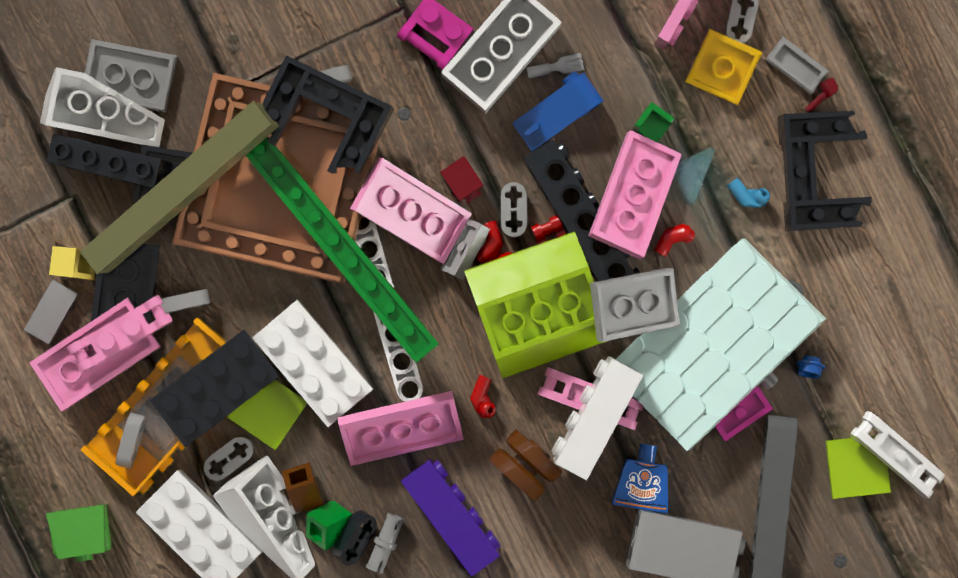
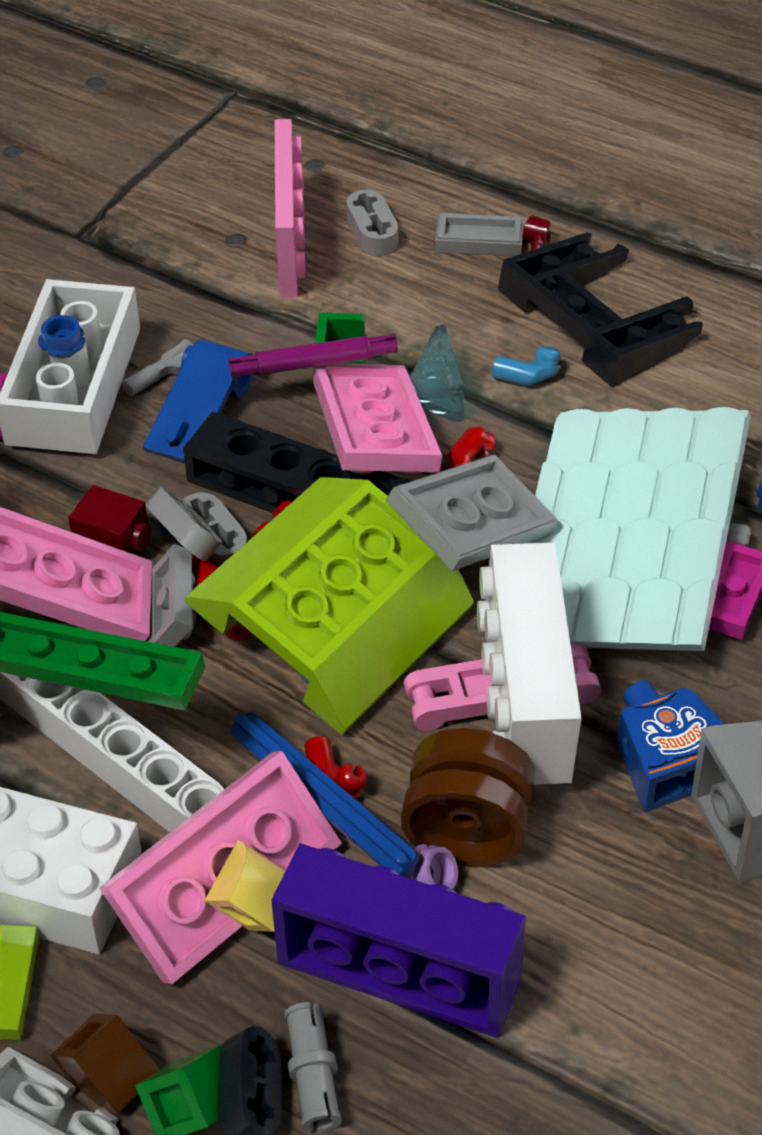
camera: 30 degrees left, 40 degrees down
(405, 451) = (246, 888): none -> light yellow brick
(467, 413) = (334, 802): none -> blue axle
(491, 481) = (435, 866): none -> lavender plate
(495, 210) = (183, 523): none -> light grey beam
(497, 41) = (61, 336): none -> blue plate
(629, 132) = (313, 355): none -> magenta piece
(723, 66) = (387, 266): yellow plate -> none

